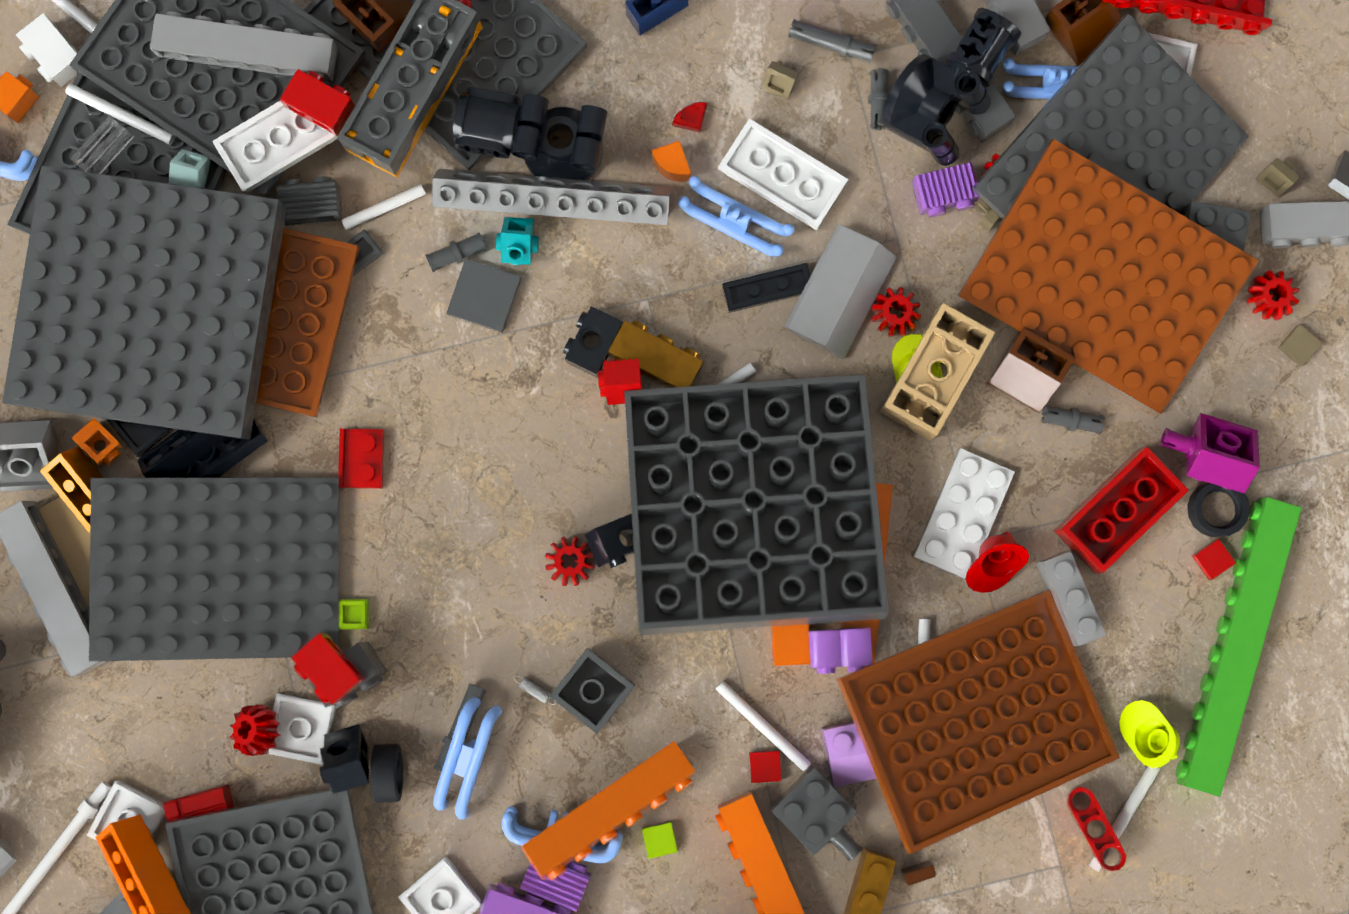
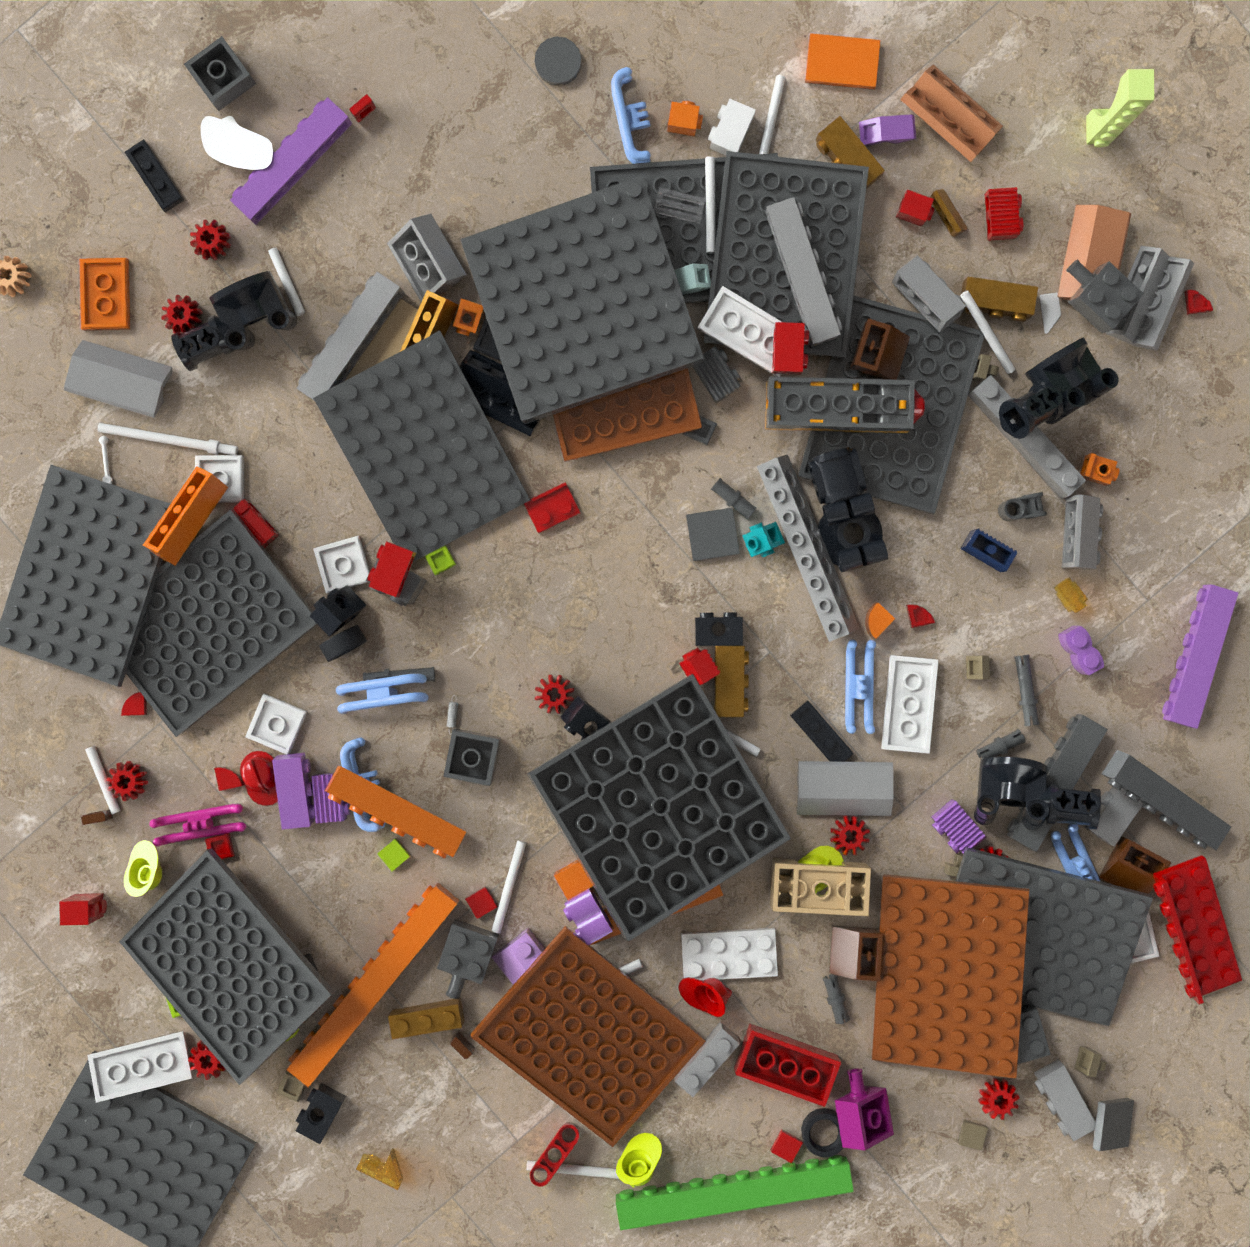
camera: 60 degrees right, 5 degrees up
(255, 730) = (325, 535): red gear -> none
(383, 207) = (740, 428): white bar -> none

